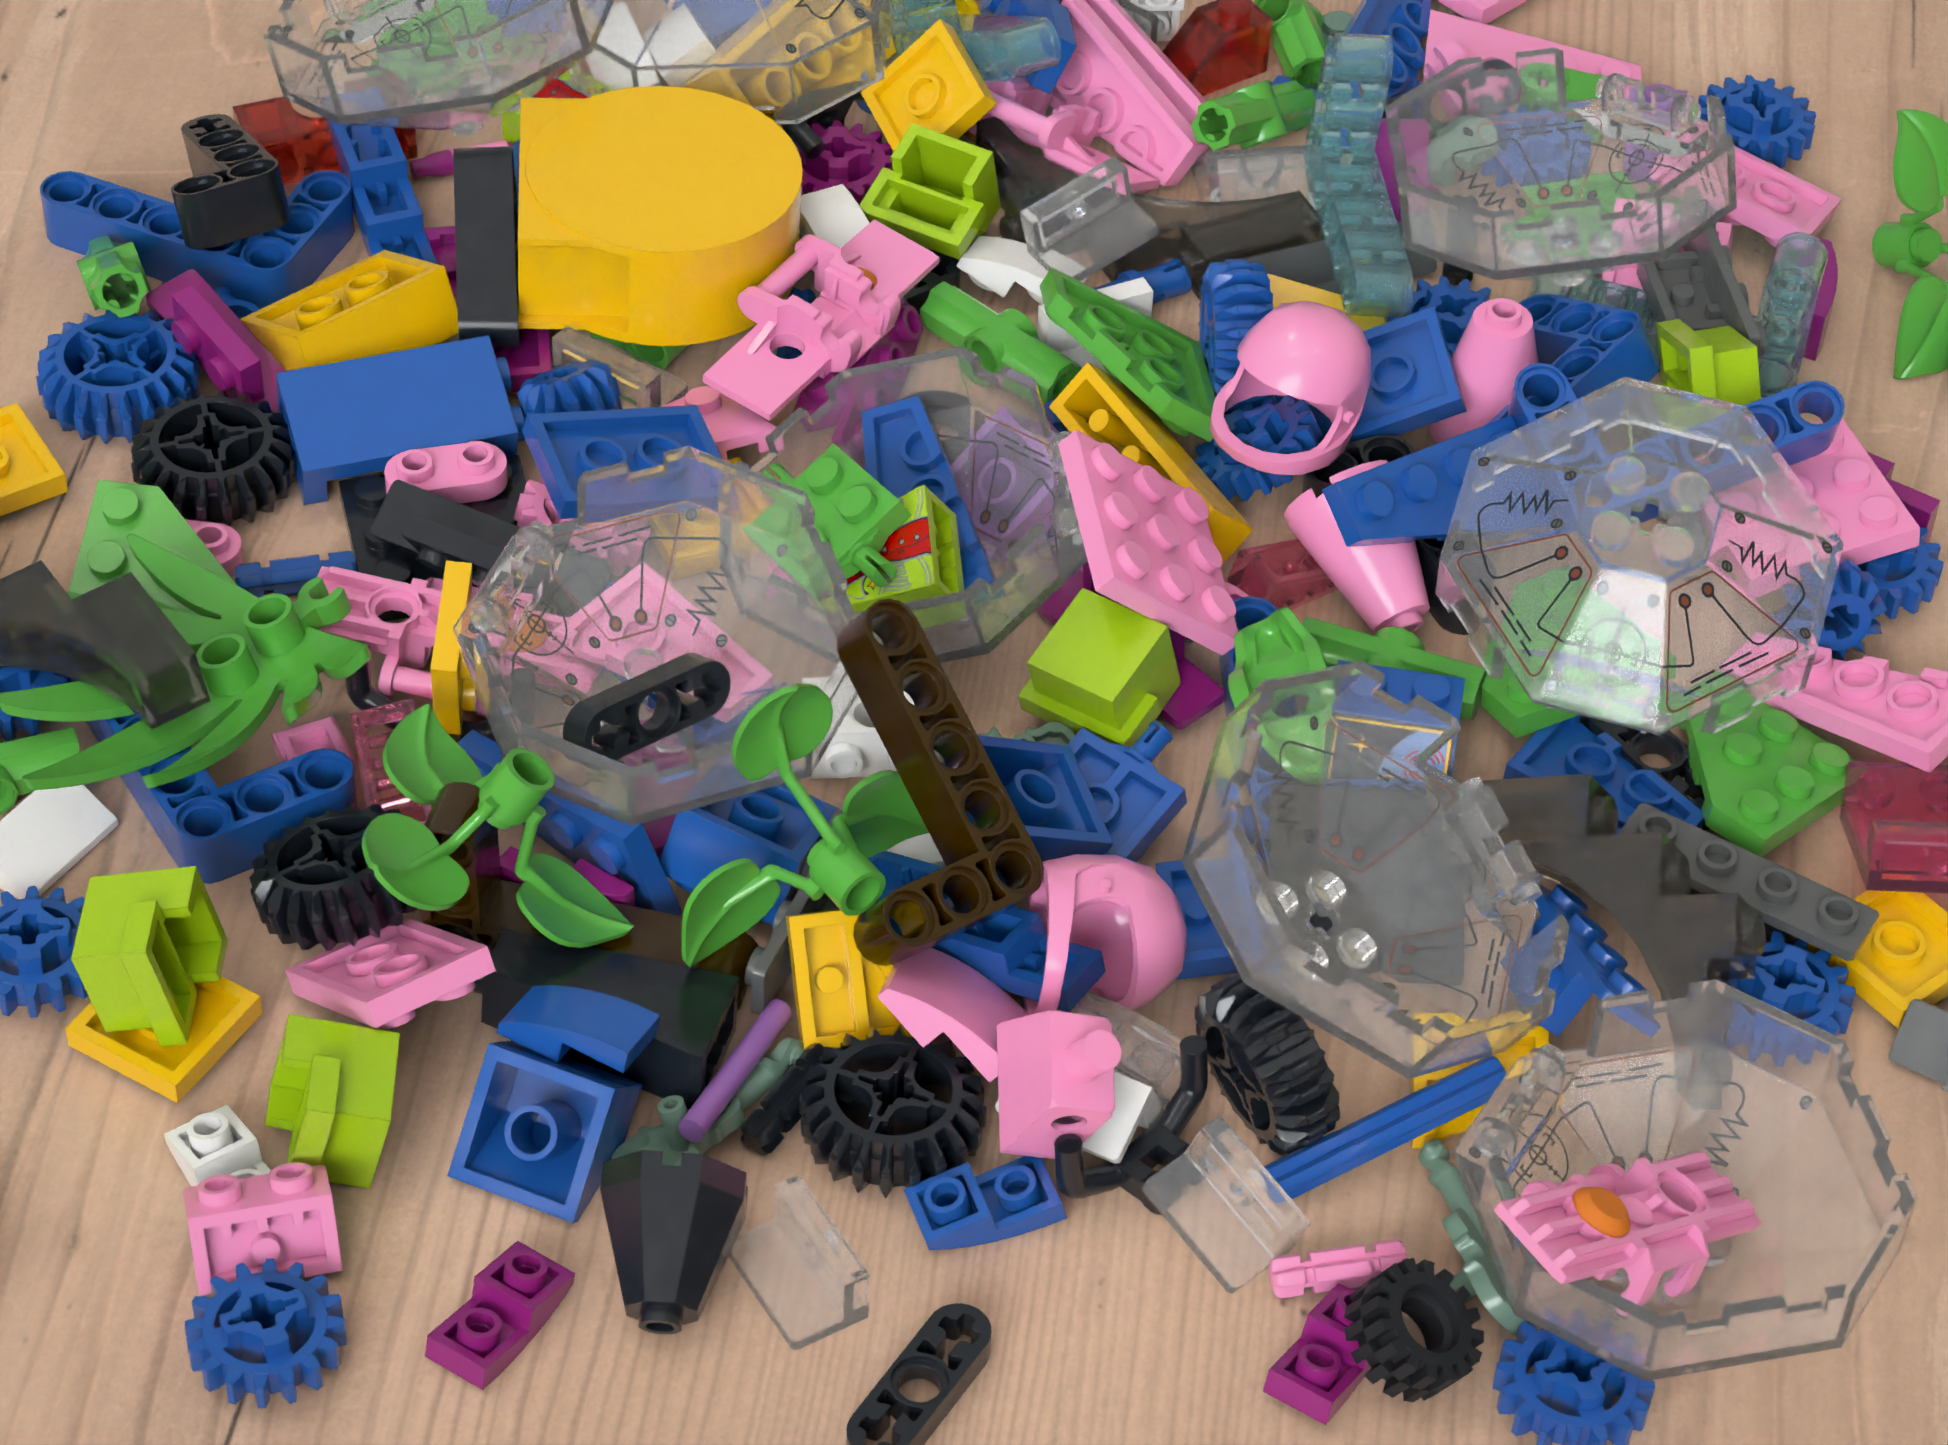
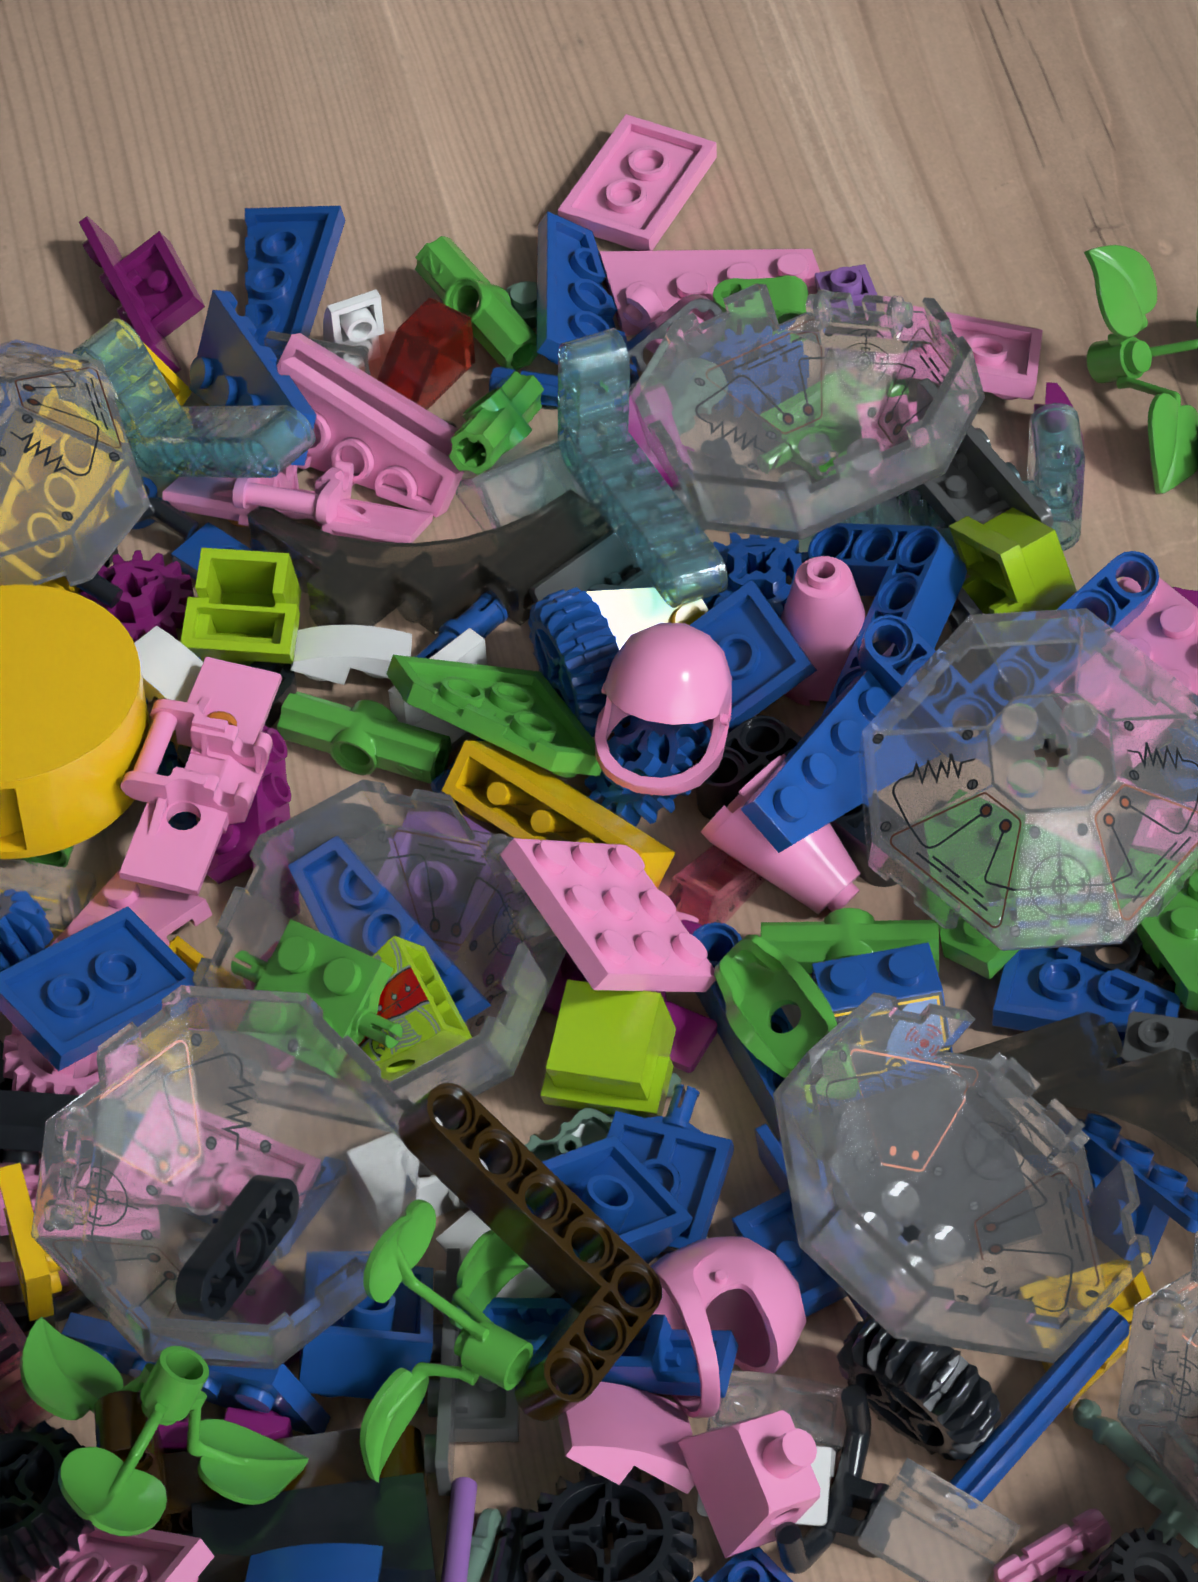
camera: 15 degrees left, 5 degrees up
(834, 981) = (507, 1447): yellow wing -> none
(931, 87) = (198, 504): yellow plate -> none
(1087, 222) = (399, 594): clear panel -> none
(1764, 118) = (937, 269): blue gear -> none

